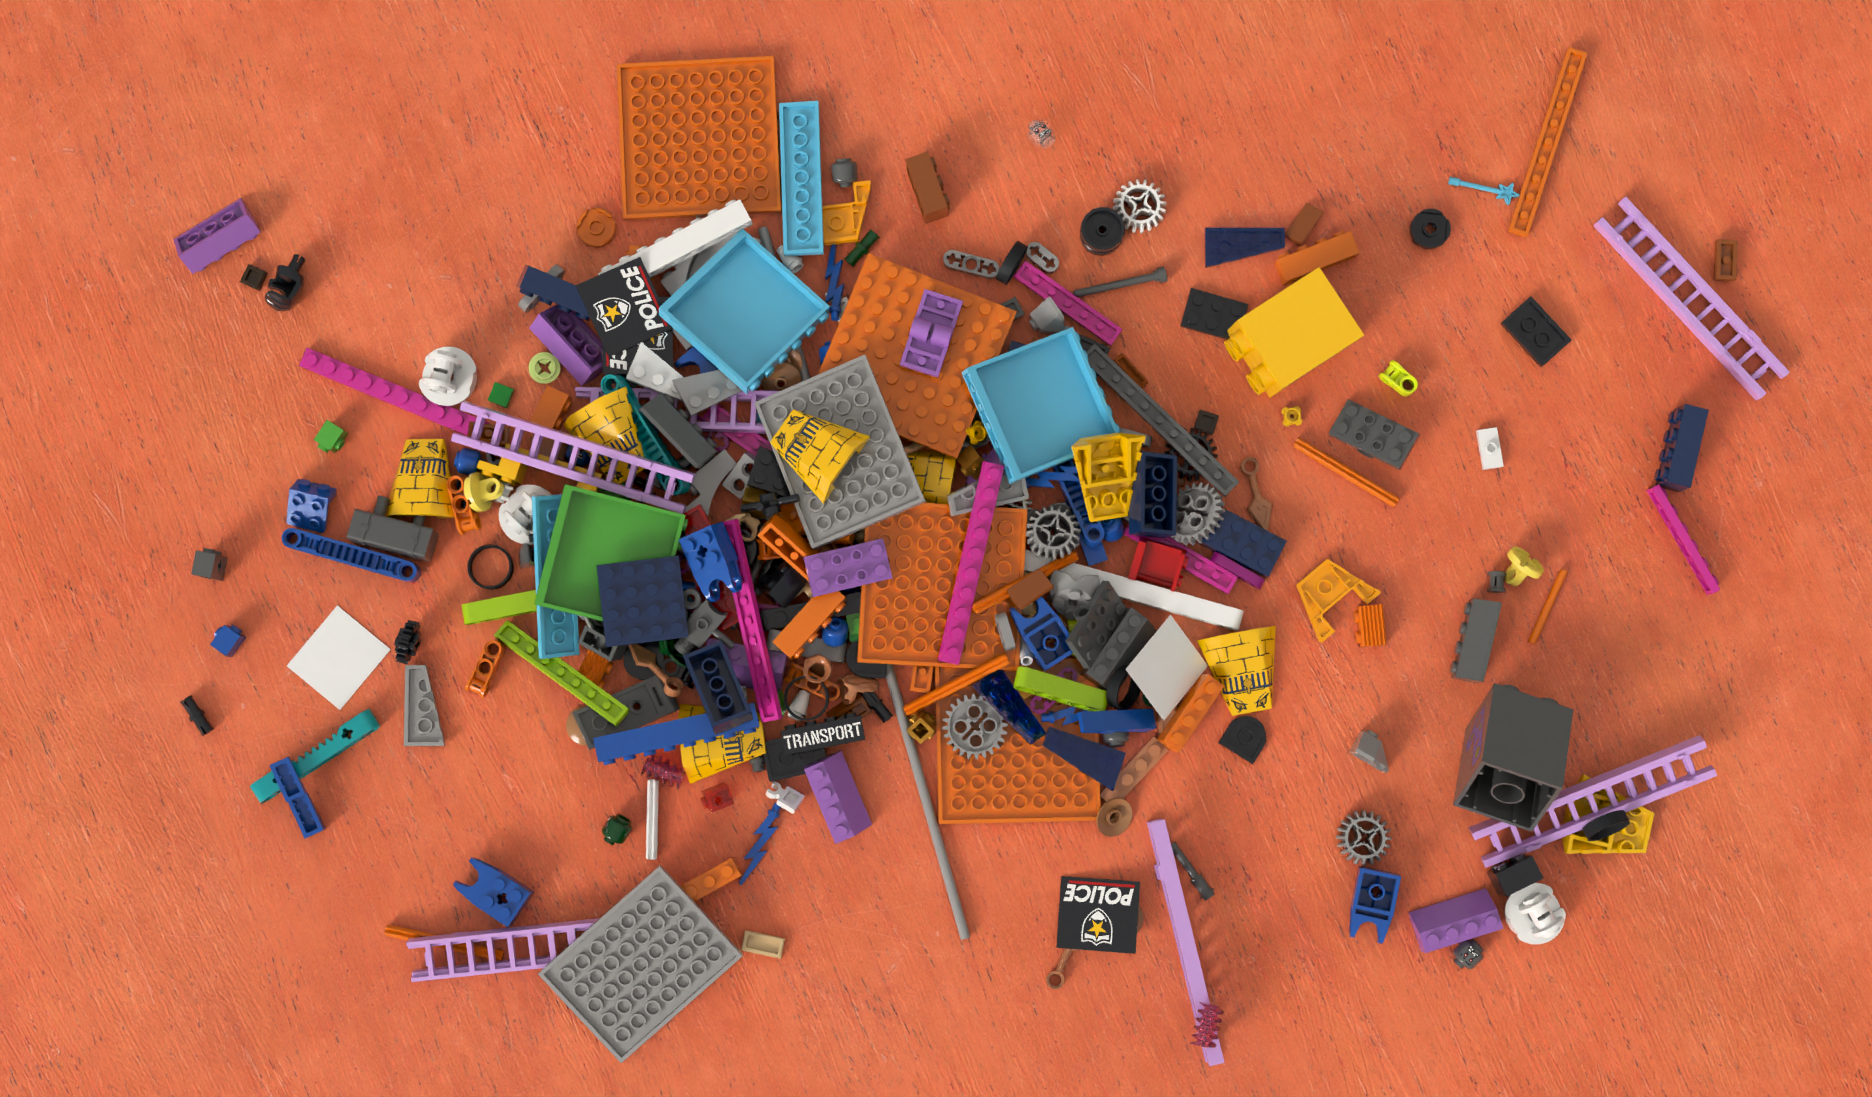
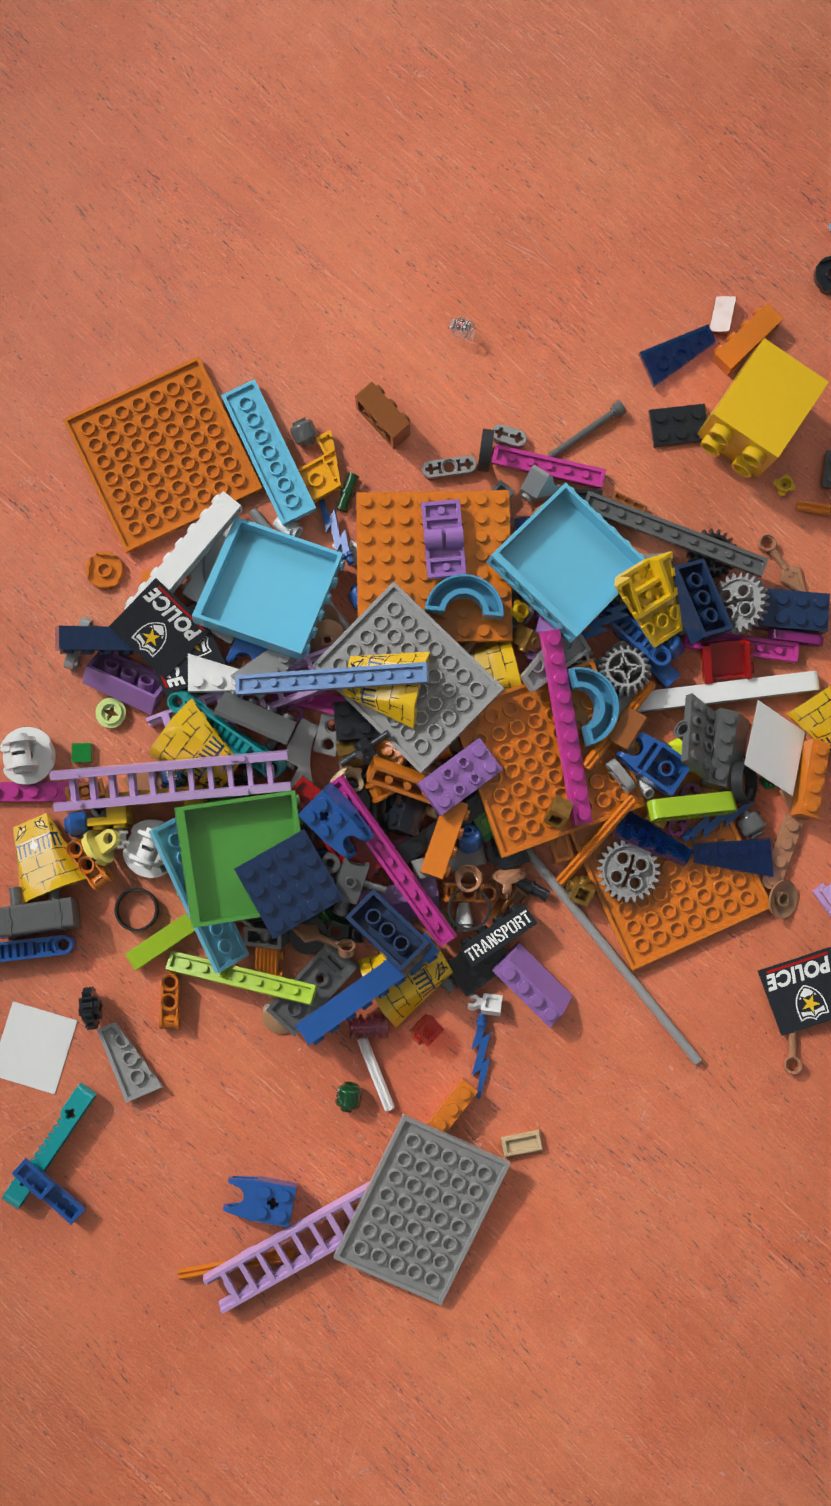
camera: 25 degrees left, 0 degrees up
(526, 556) = (165, 886): dark grey slope -> none
(551, 408) = (132, 745): orange brick -> none
(765, 423) = (332, 678): none -> medium blue plate
(928, 387) = (465, 587): none -> dark azure brick
(928, 641) = (558, 812): none -> pearl gold brick
(1018, 554) = (604, 702): none -> dark azure brick
(1071, 593) = (663, 717): light grey brick -> none
(1102, 243) = (562, 390): black wheel -> none
(1117, 721) = (751, 813): blue slope -> none
(1147, 191) = (567, 356): white gear -> none
(1206, 422) = (712, 520): dark brown tile -> none

